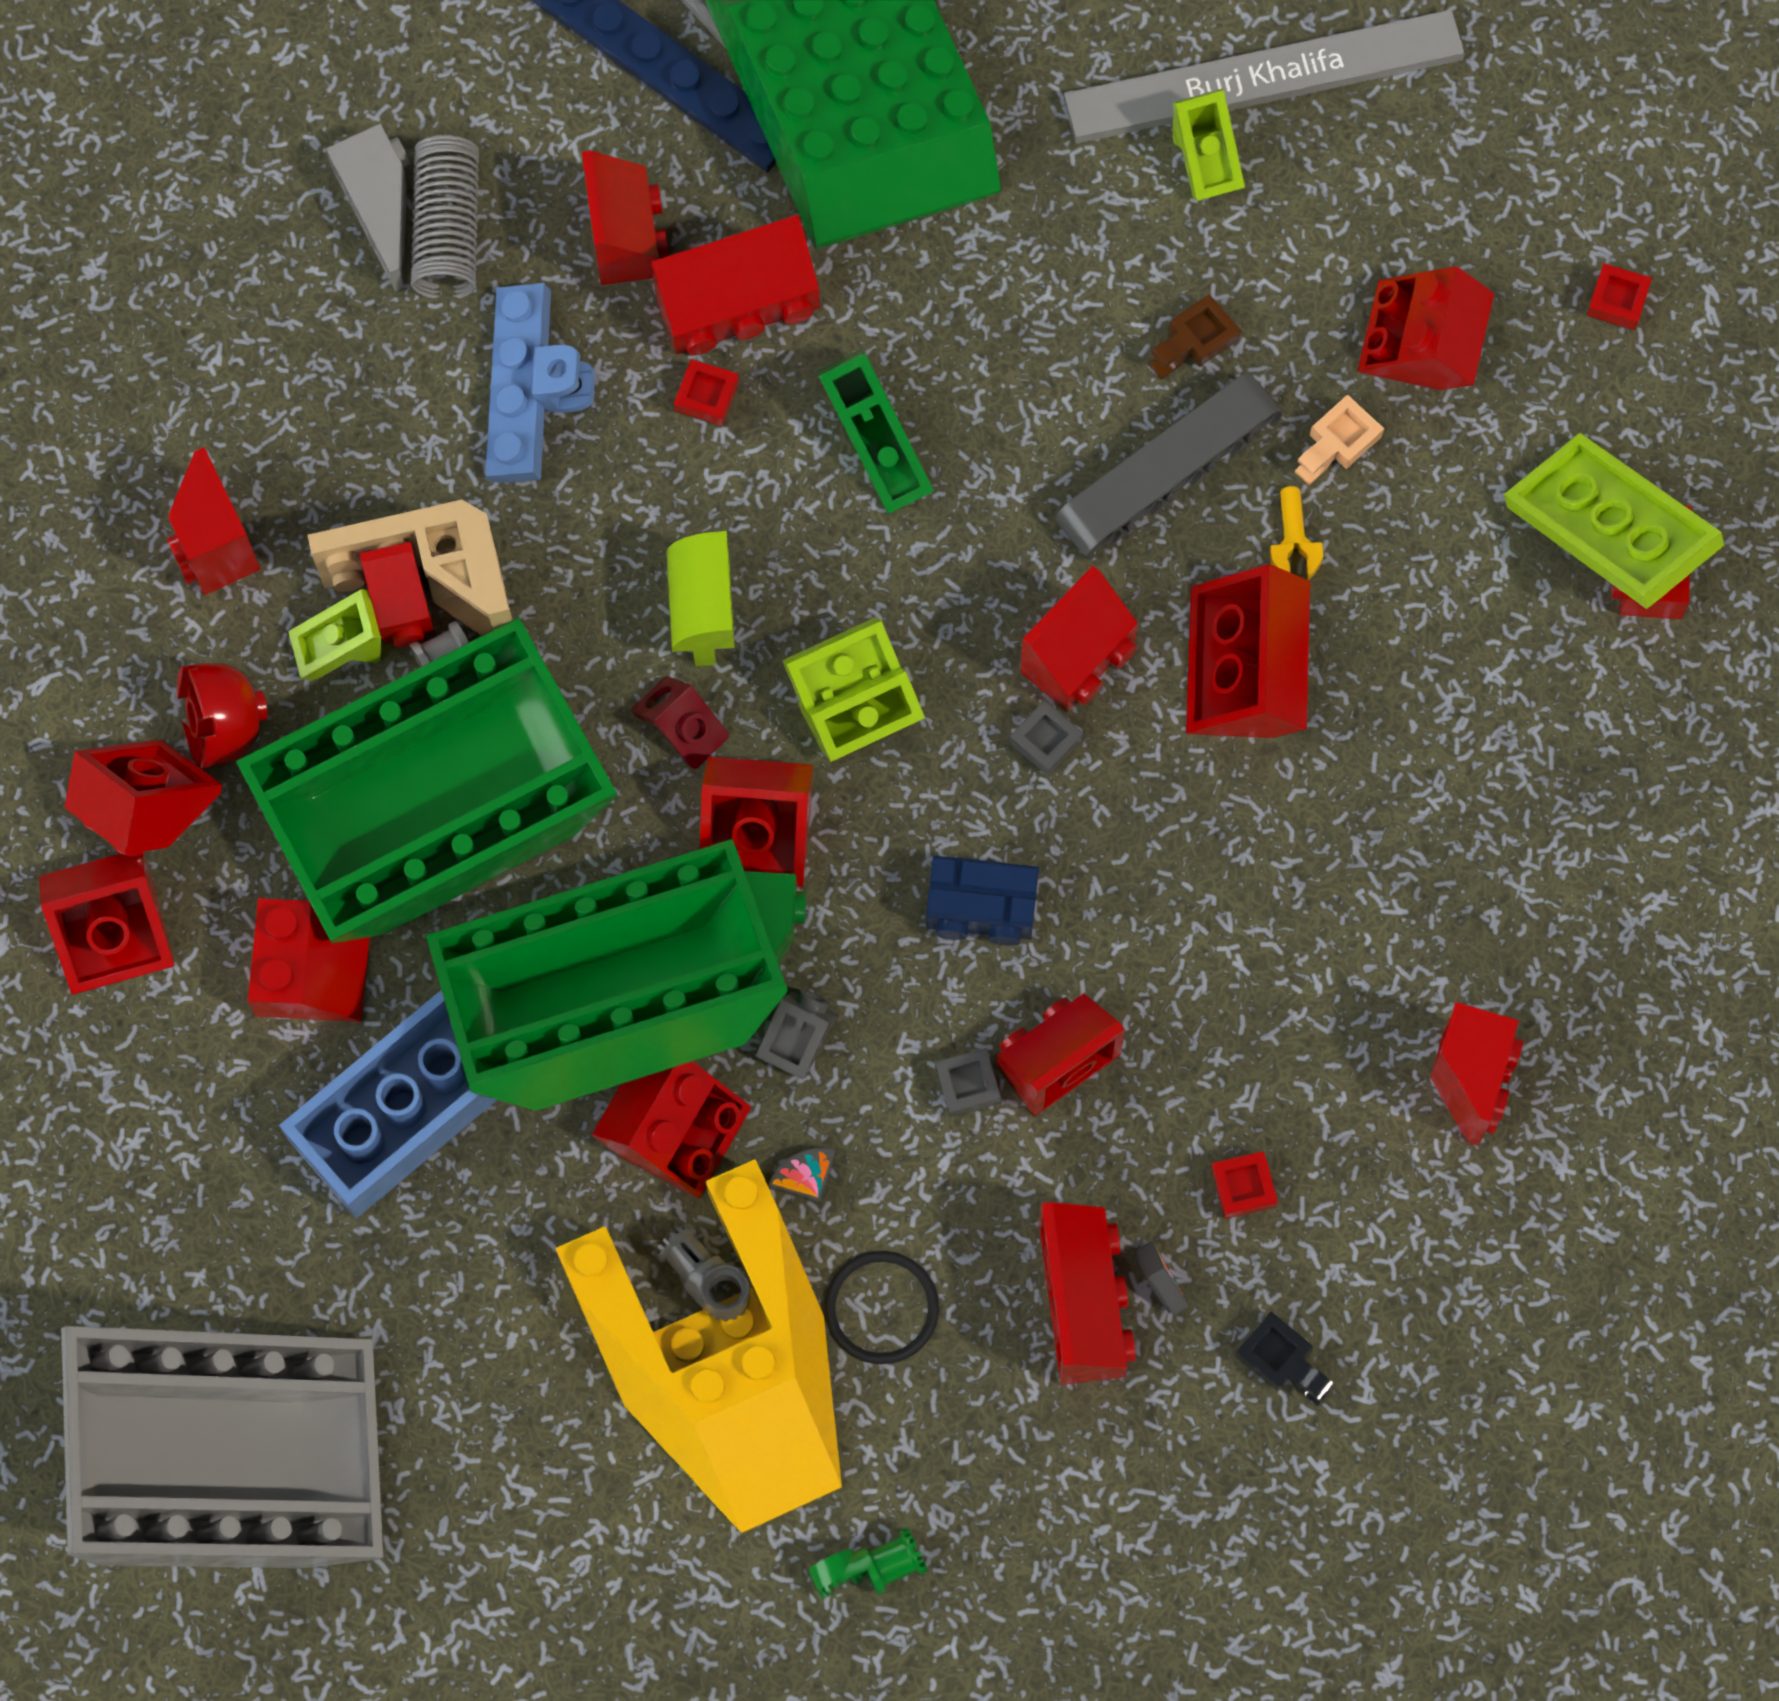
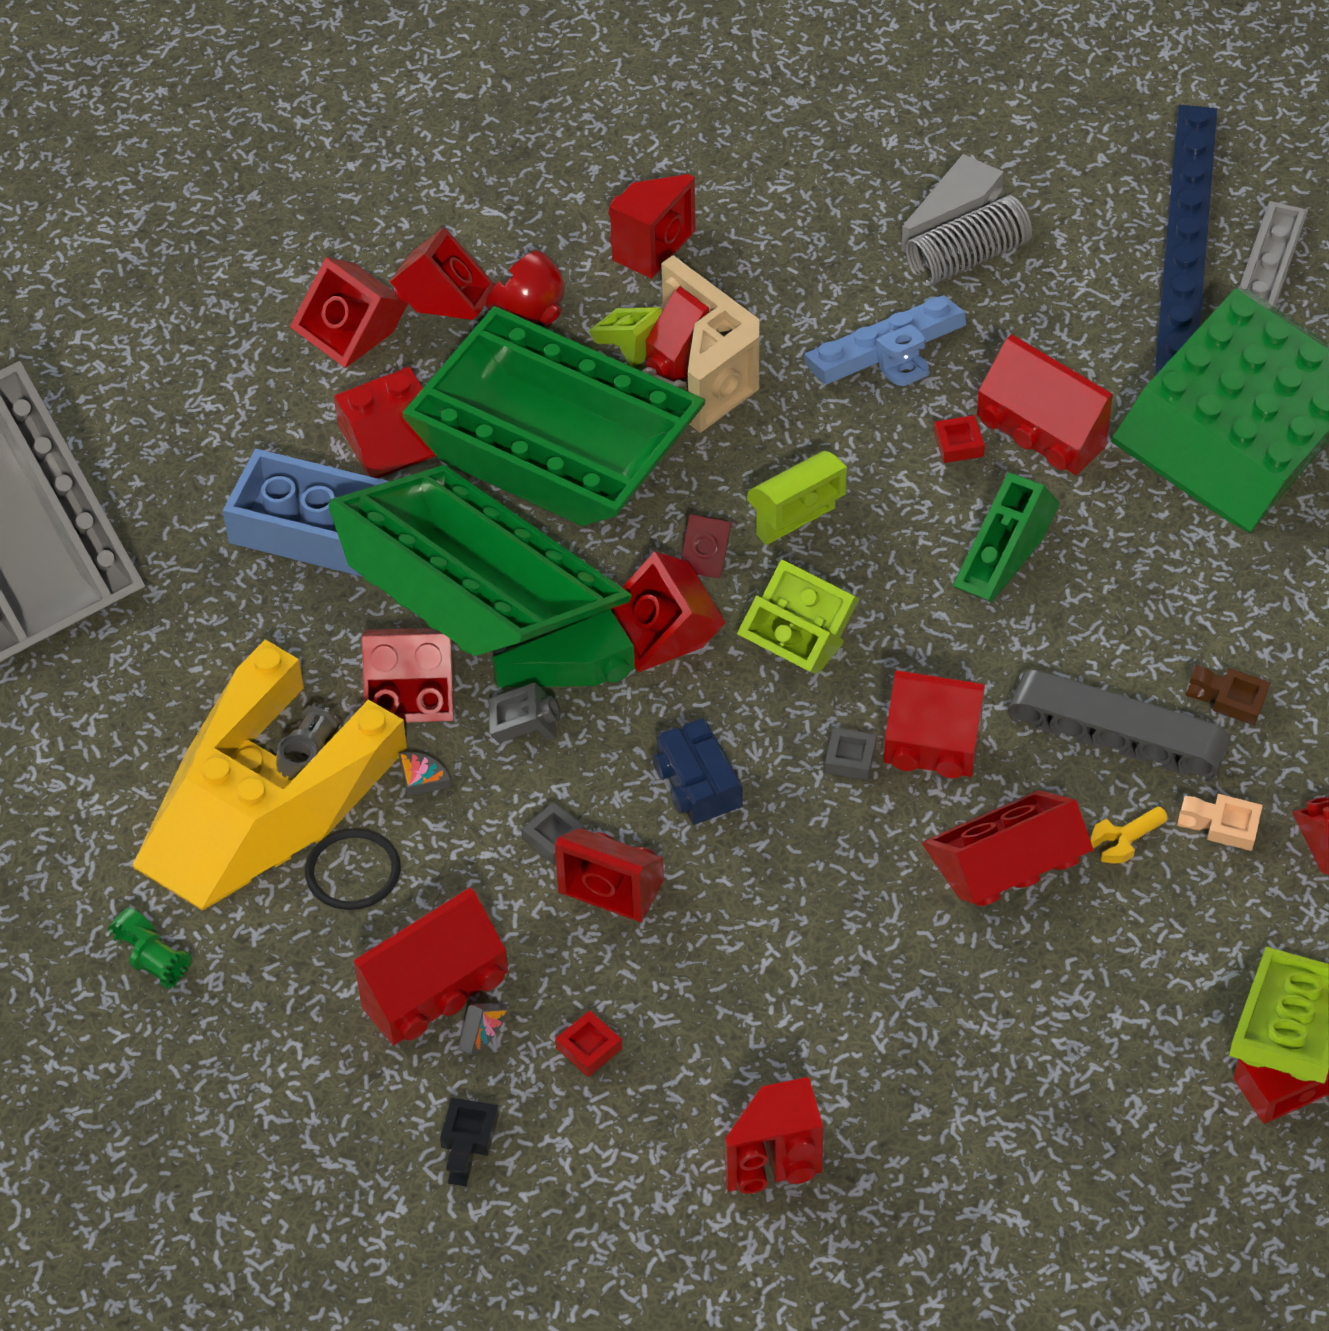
camera: 60 degrees right, 20 degrees down
(623, 218) = (1045, 314): red slope -> none

